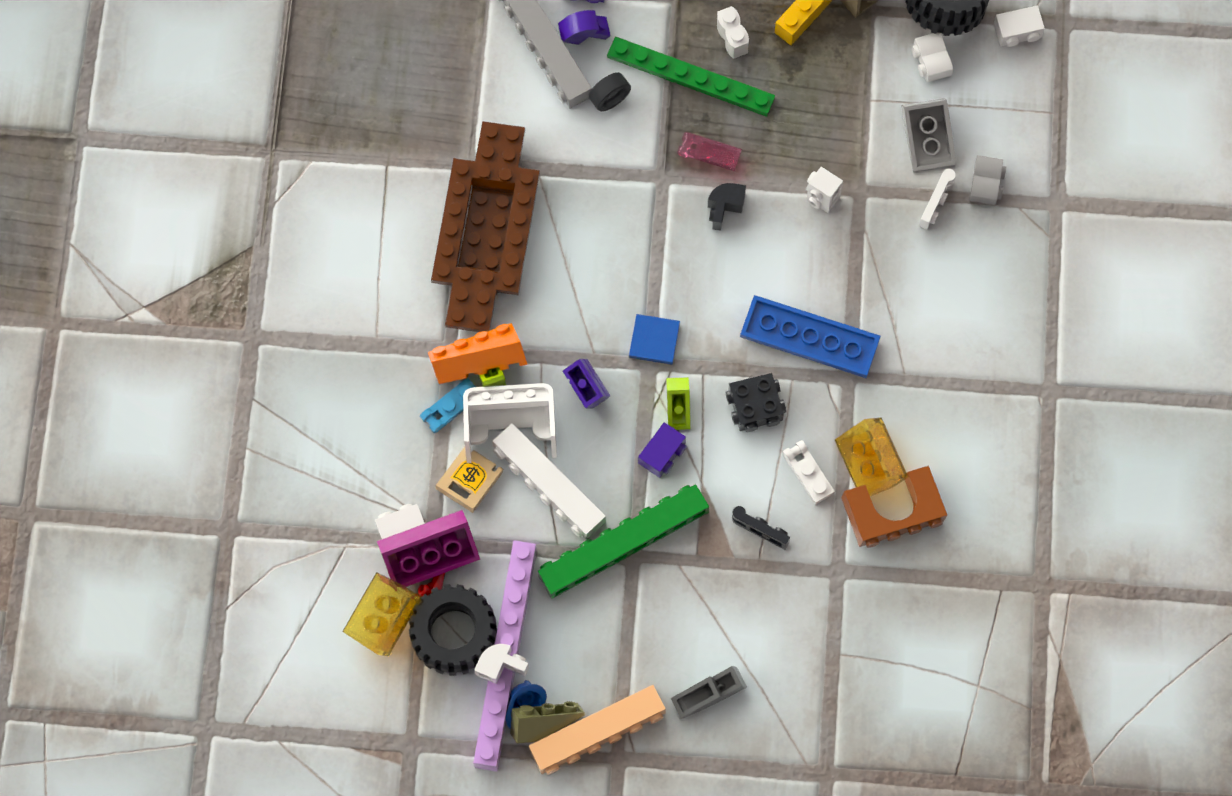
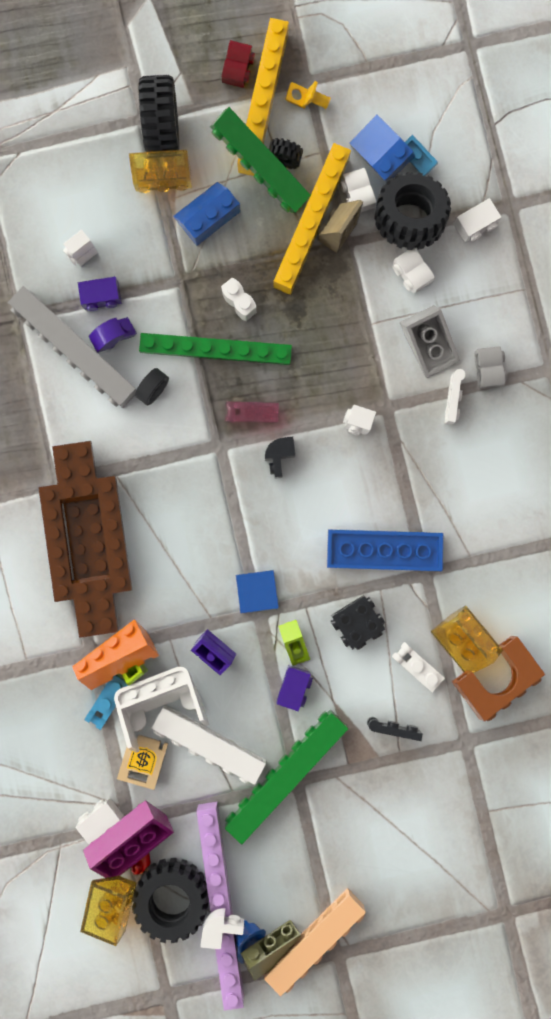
camera: 25 degrees left, 15 degrees up
(708, 692) = (395, 880): dark grey slope -> none

